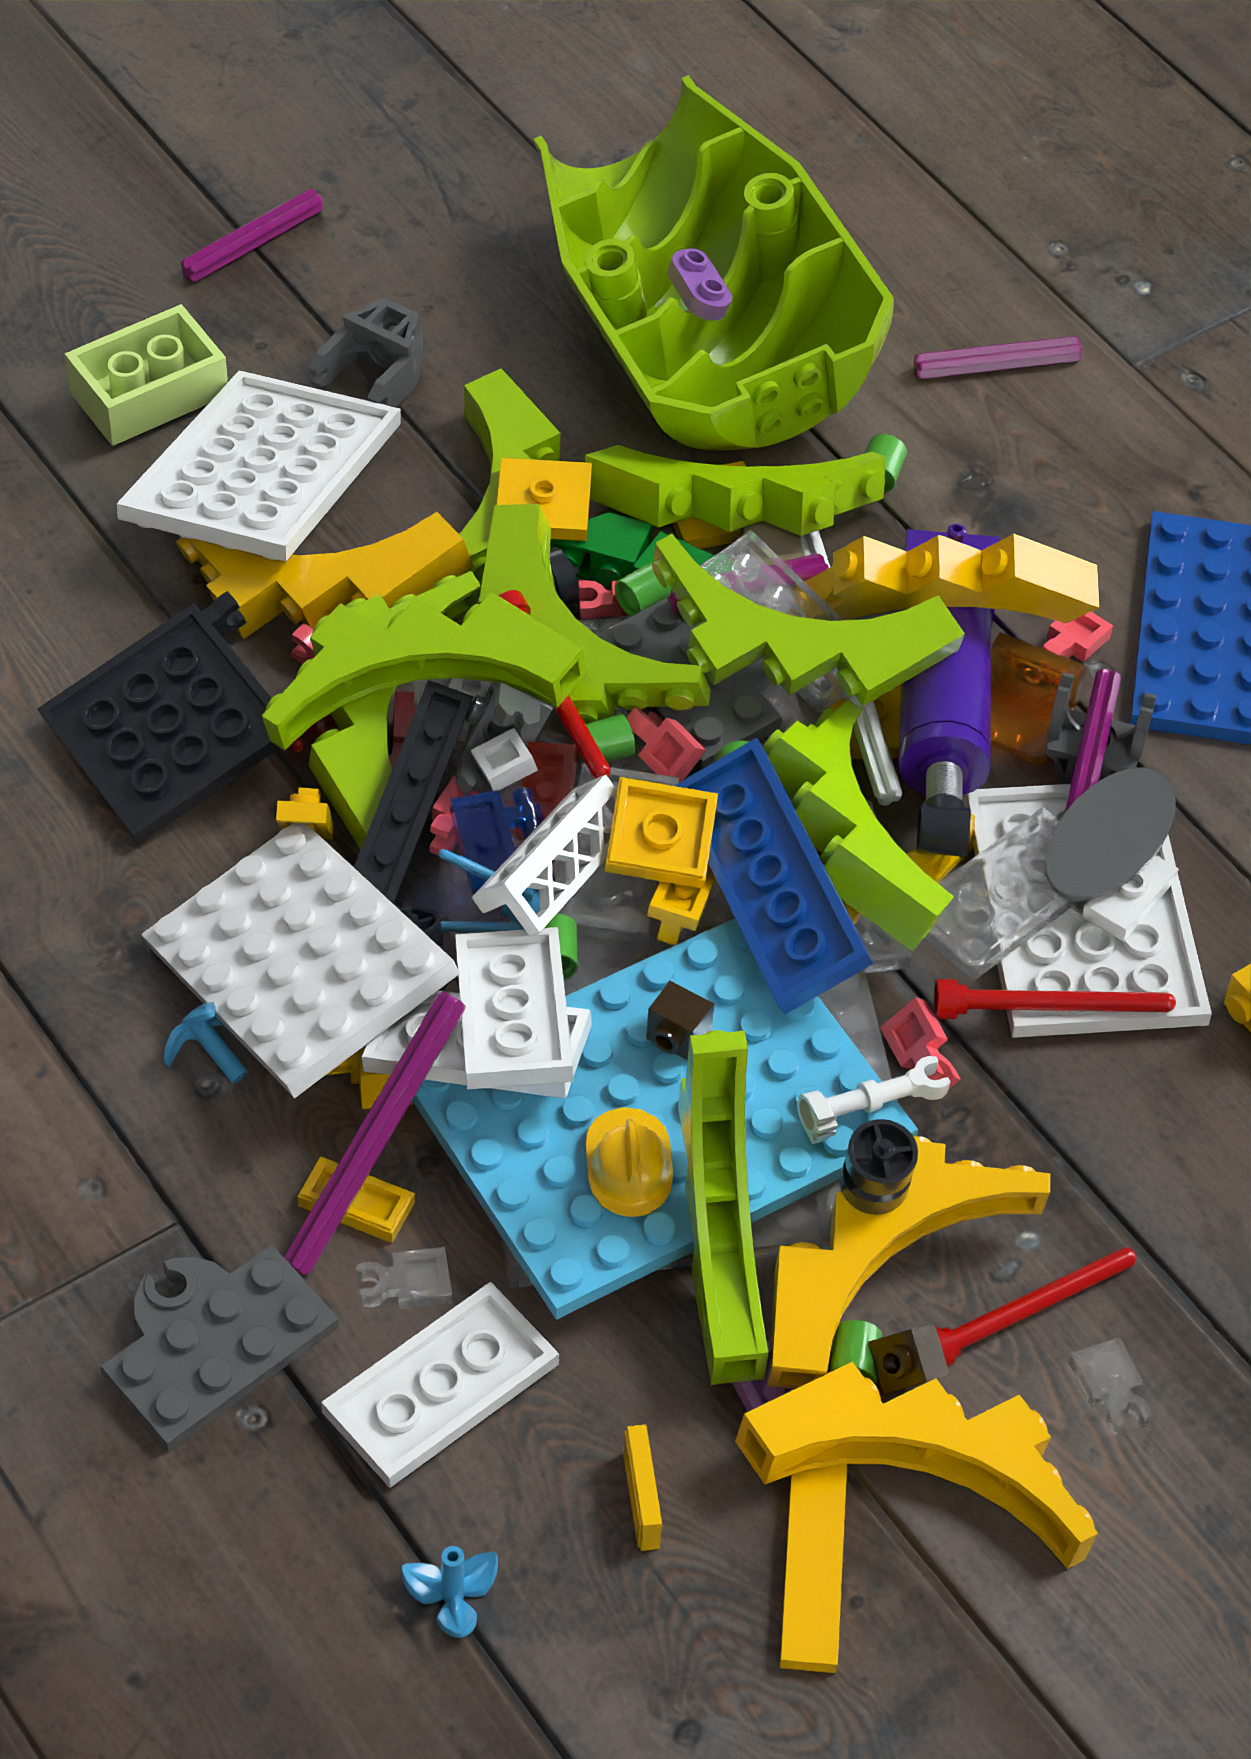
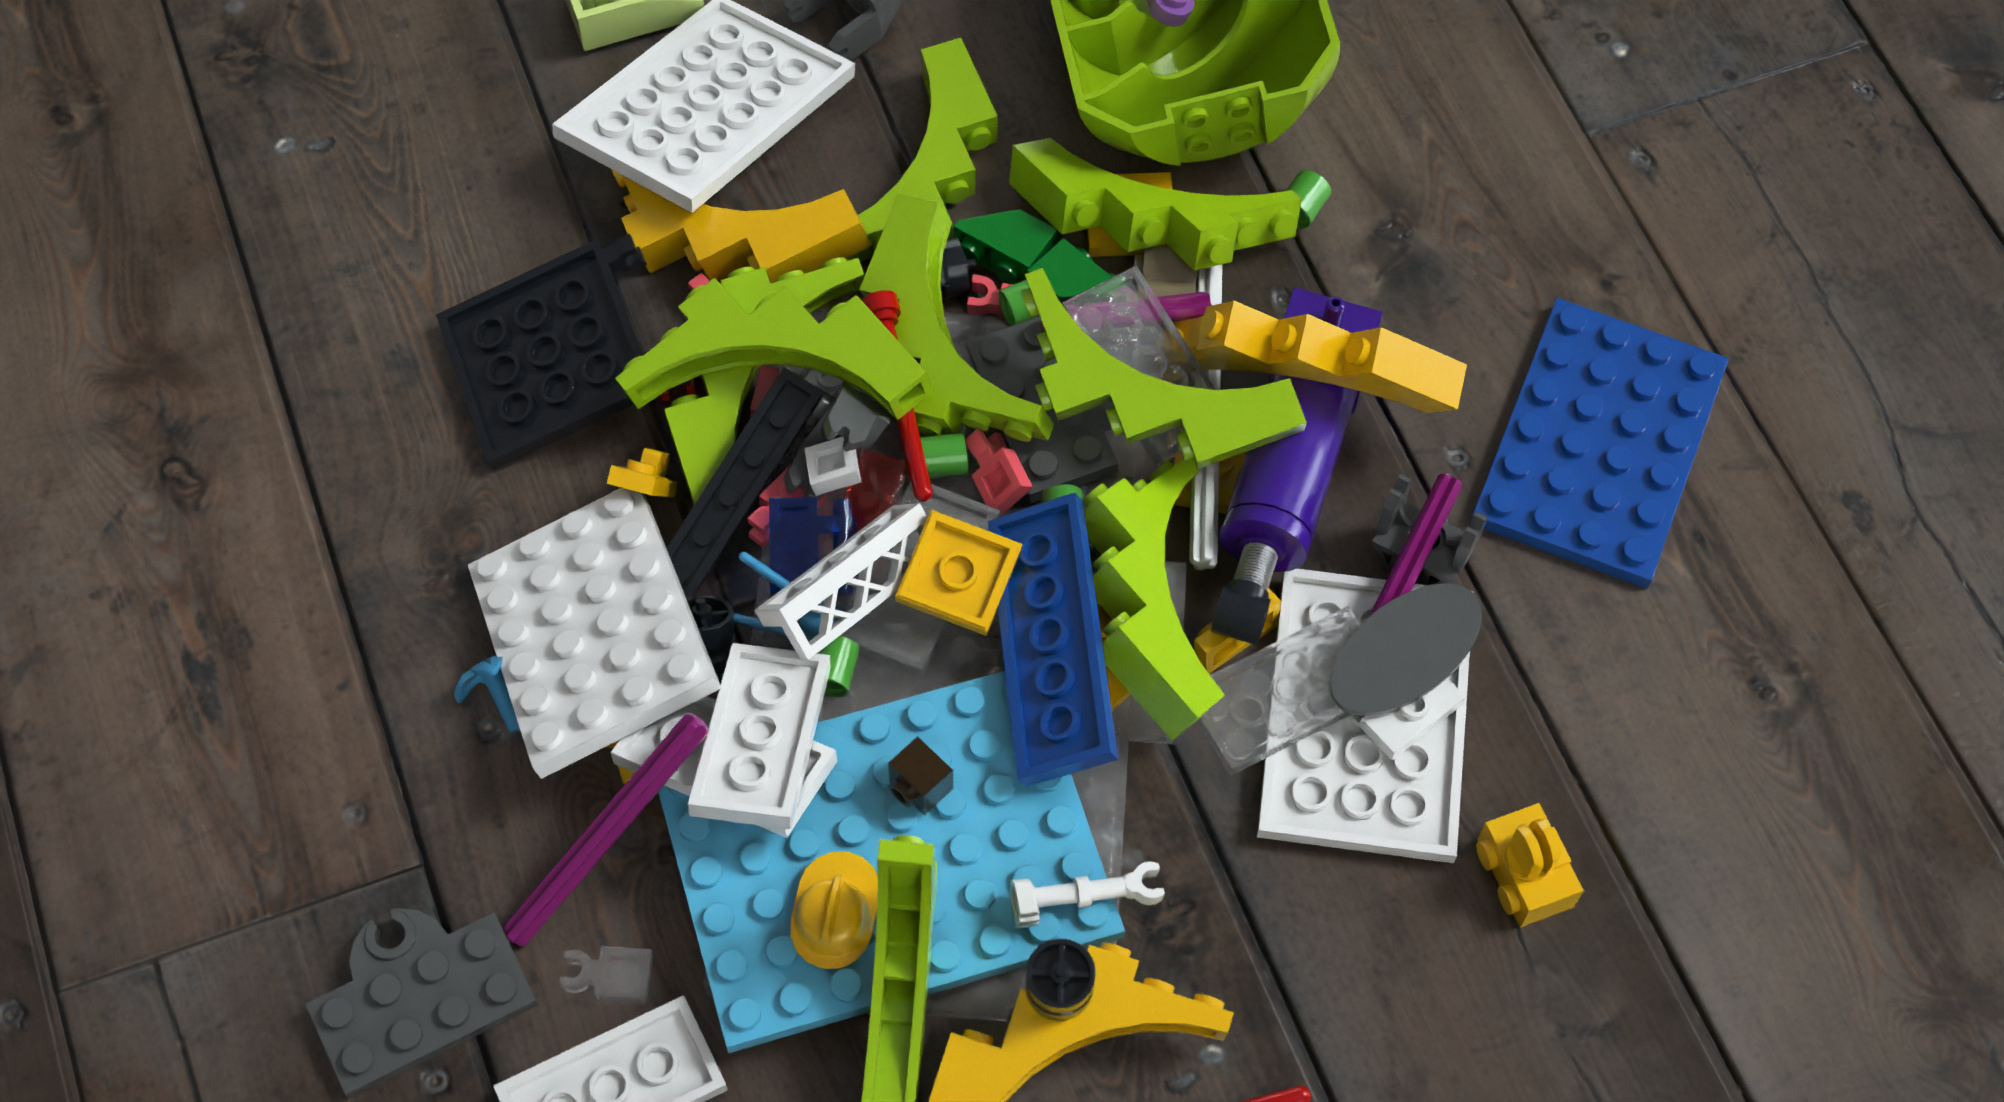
camera: 15 degrees right, 10 degrees up
(377, 1208) = (606, 888): yellow tile -> none
(557, 486) = (964, 181): yellow plate -> none
(679, 907) = (960, 649): yellow plate -> none
(917, 1034) = (1159, 824): coral plate -> none
(956, 999) = (1208, 792): red piece -> none
(997, 357) = (1452, 103): magenta axle -> none
(1024, 695) = (1366, 473): clear orange bracket -> none
(1078, 637) = (1441, 426): coral plate -> none

